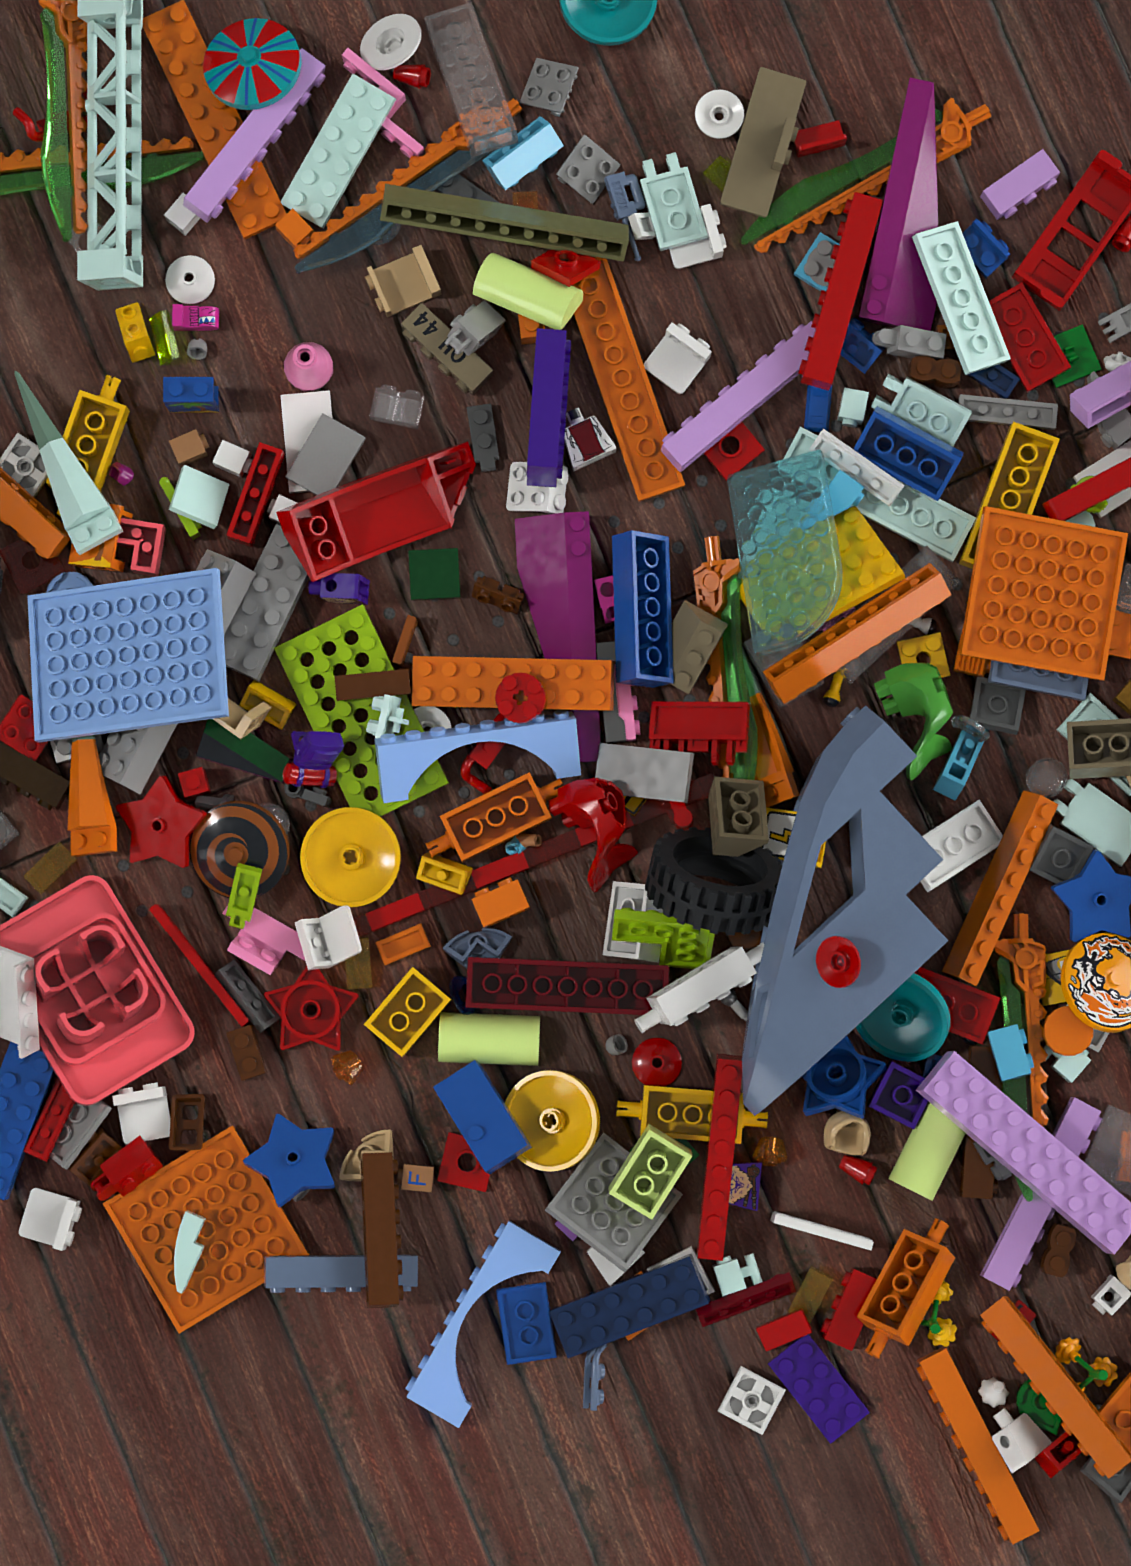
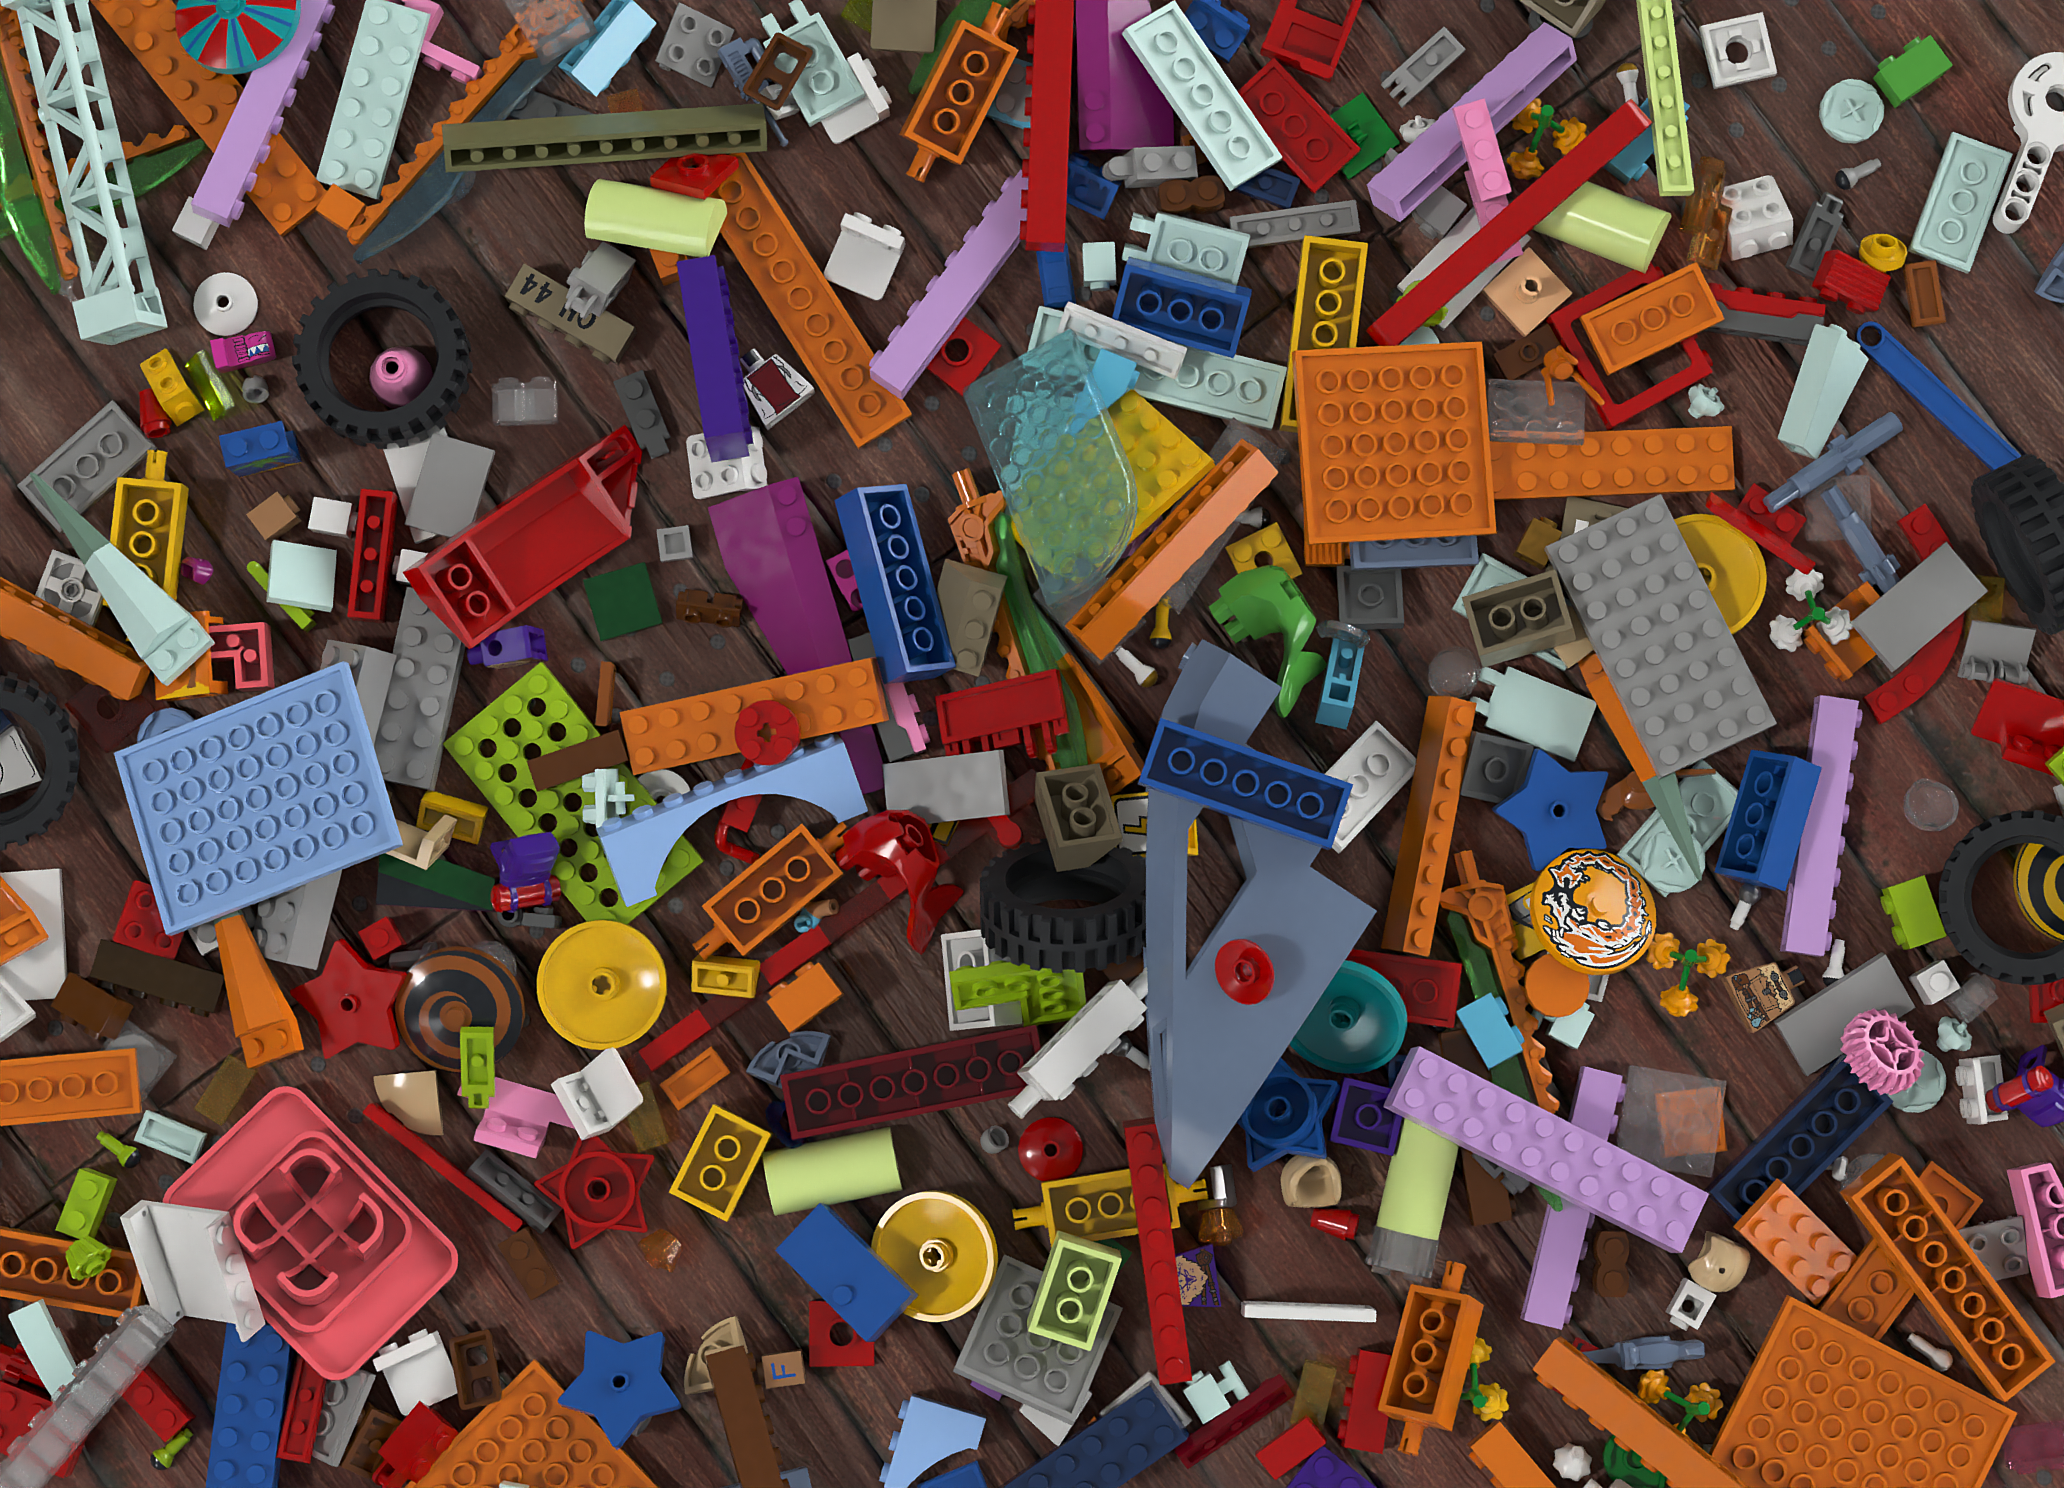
camera: 15 degrees left, 0 degrees up
(61, 374) = (90, 462): none -> light grey tile
(116, 351) = (153, 417): none -> red cone
(187, 909) = (412, 1100): none -> tan brick
(284, 300) = (339, 309): none -> black tyre
(403, 282) = (496, 244): tan panel -> none
(483, 540) = (674, 543): none -> light grey plate
(637, 200) = (766, 70): none -> reddish brown piece
(778, 251) = (958, 92): none -> orange brick
(779, 1123) = (1222, 1187): none -> flat silver tile
(813, 723) = (1145, 675): none -> white piece
(872, 821) = (1245, 784): none -> blue brick
(902, 1203) = (1401, 1253): none -> clear brick
(1070, 1324) = (1648, 1352): none -> sand blue animal

